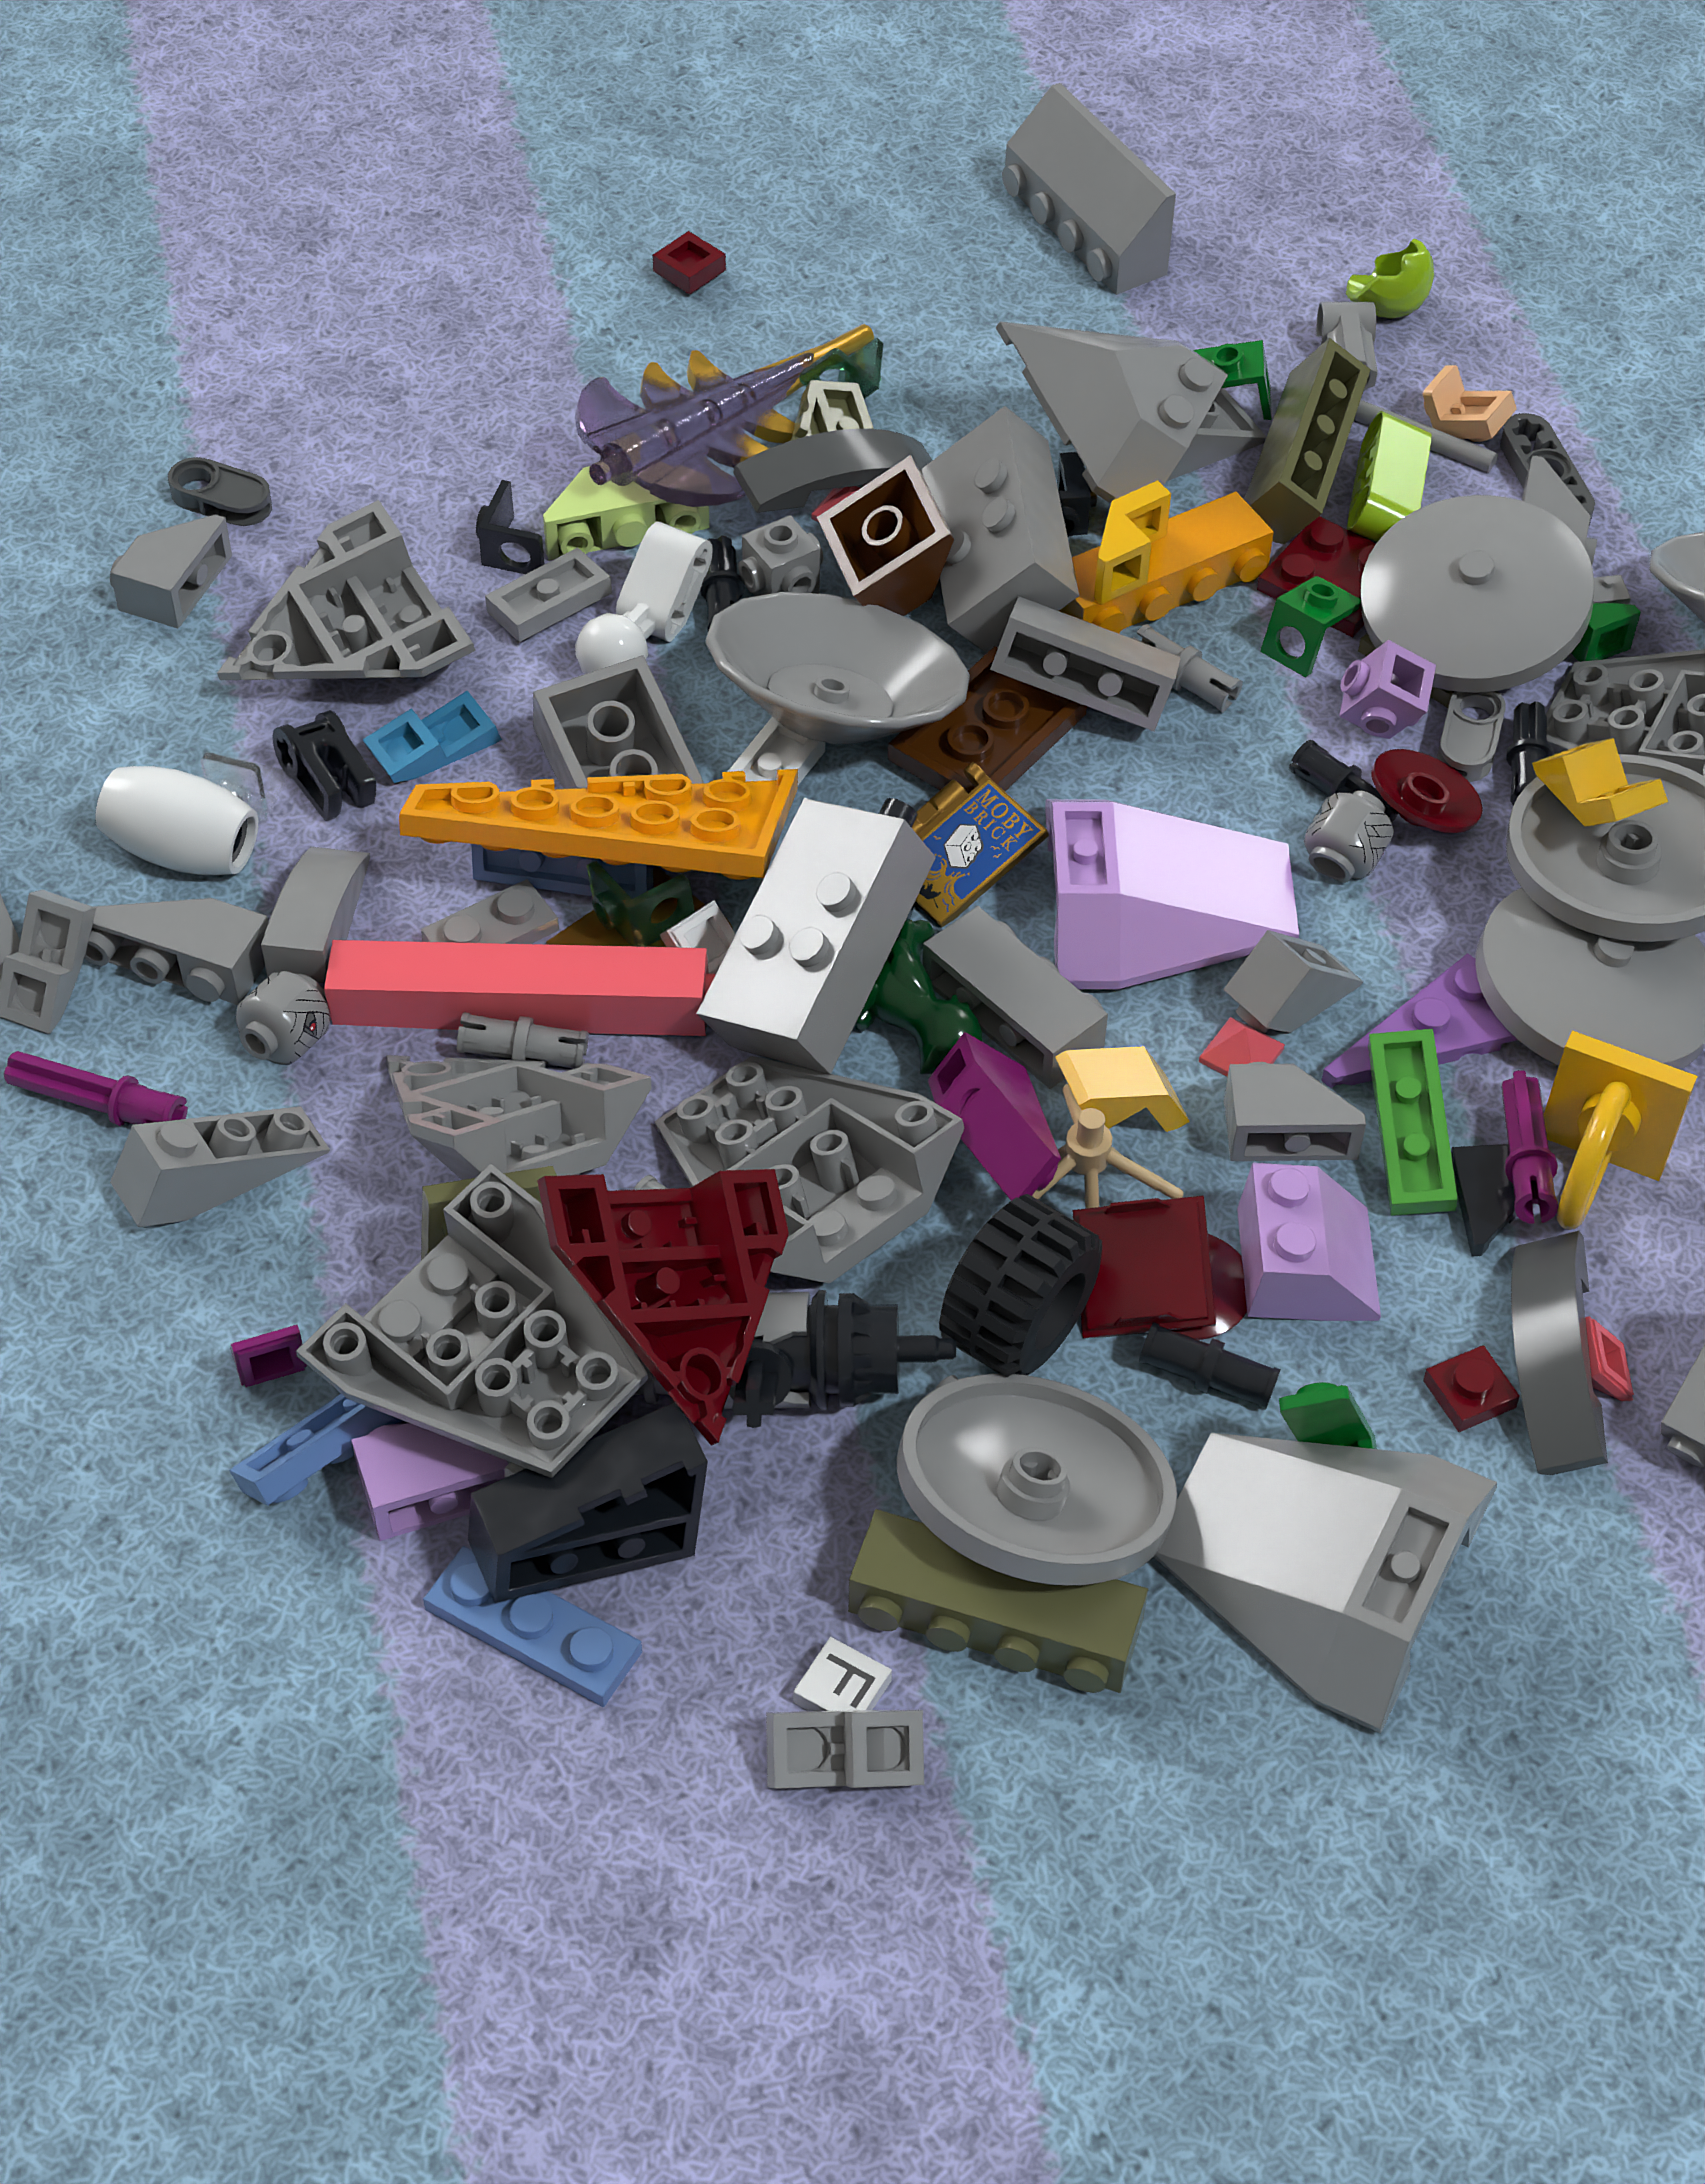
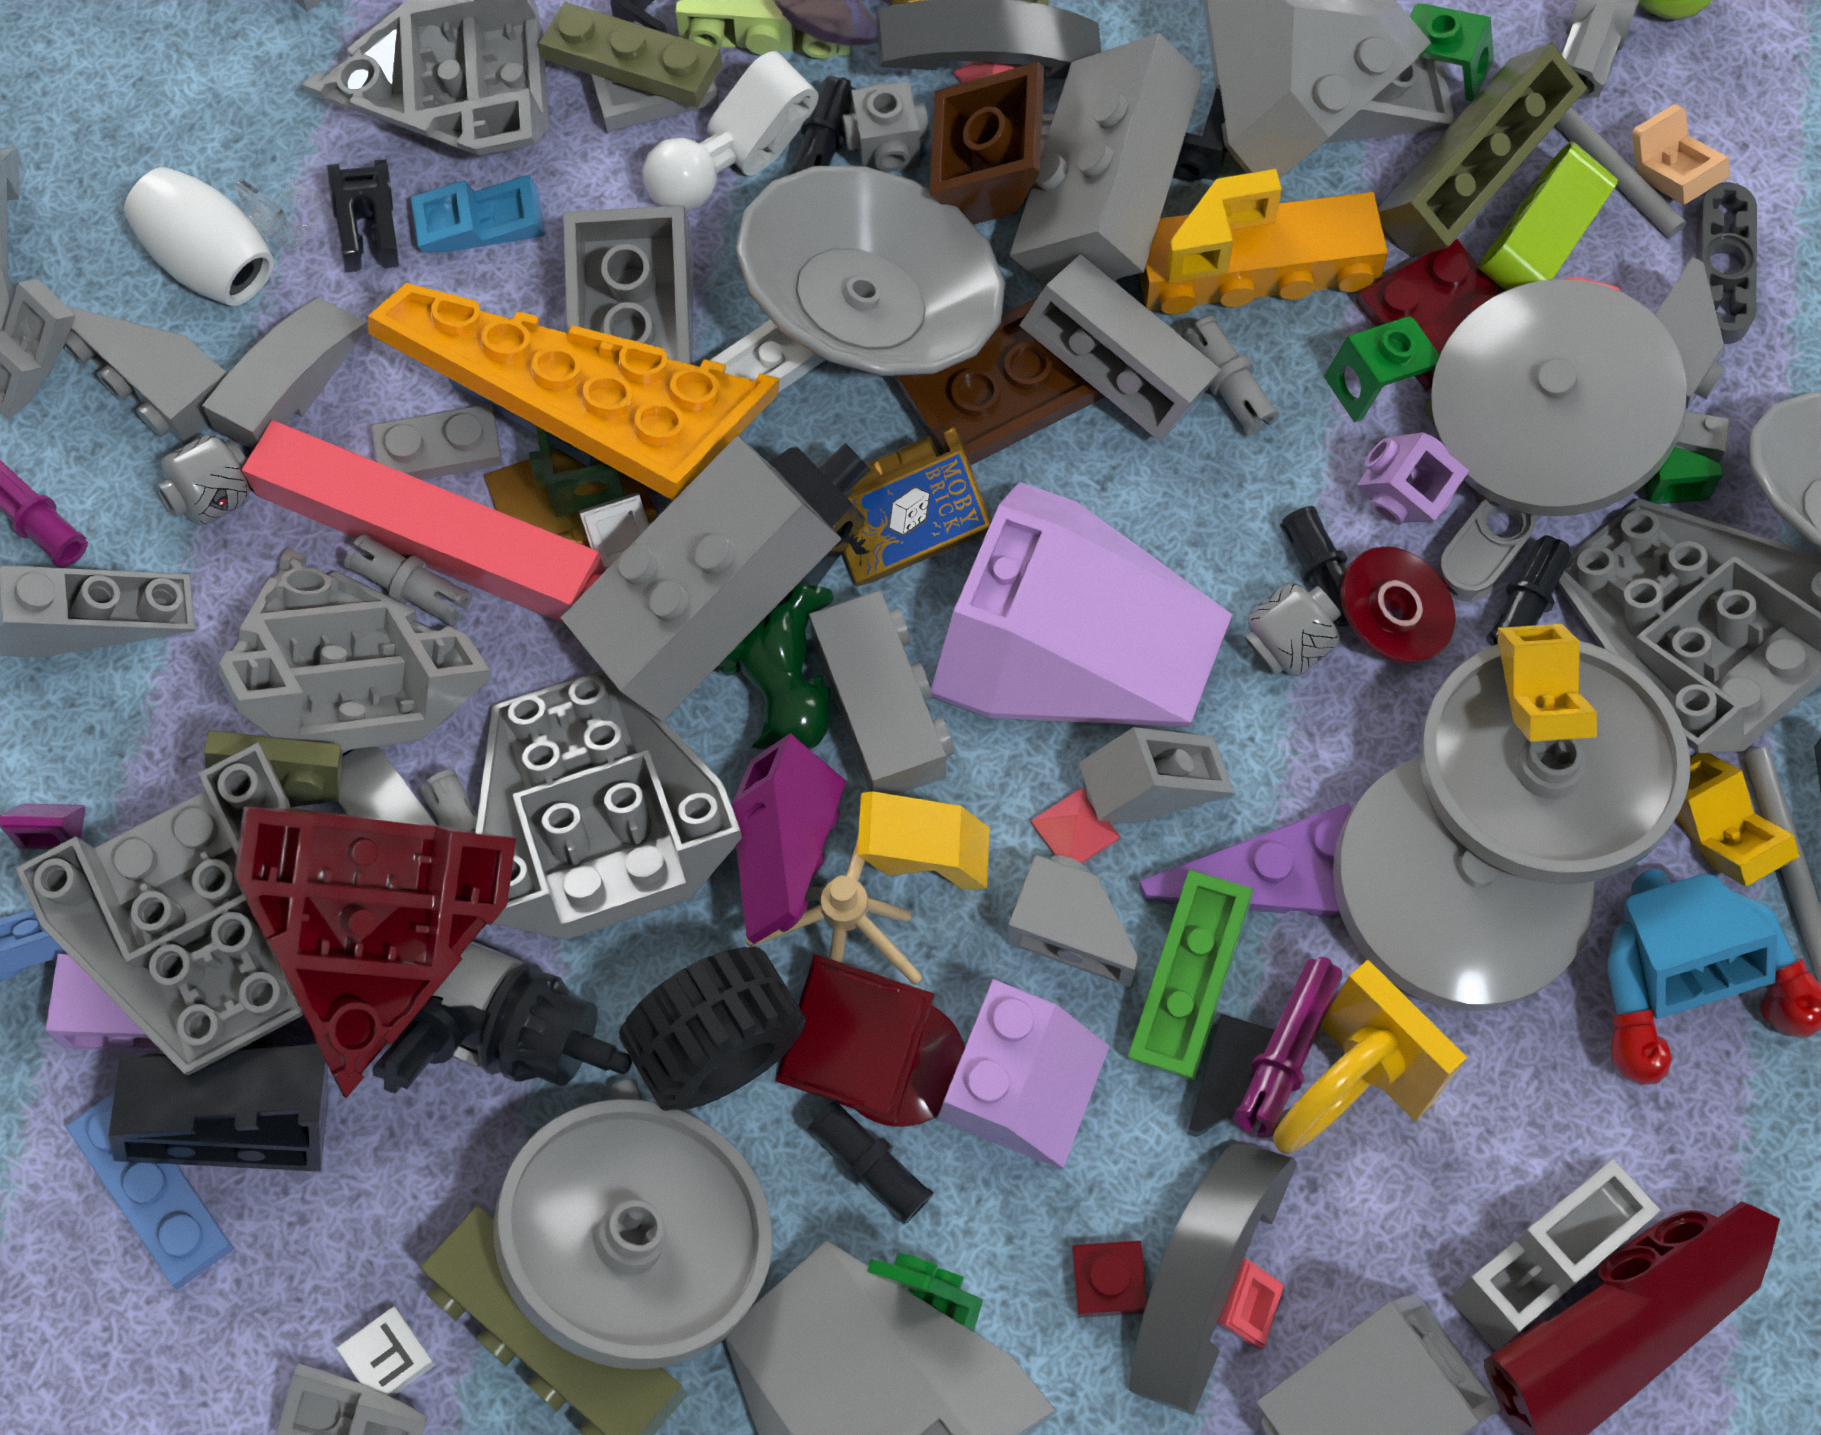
camera: 25 degrees right, 15 degrees up
(517, 568) = (630, 54): none -> olive plate

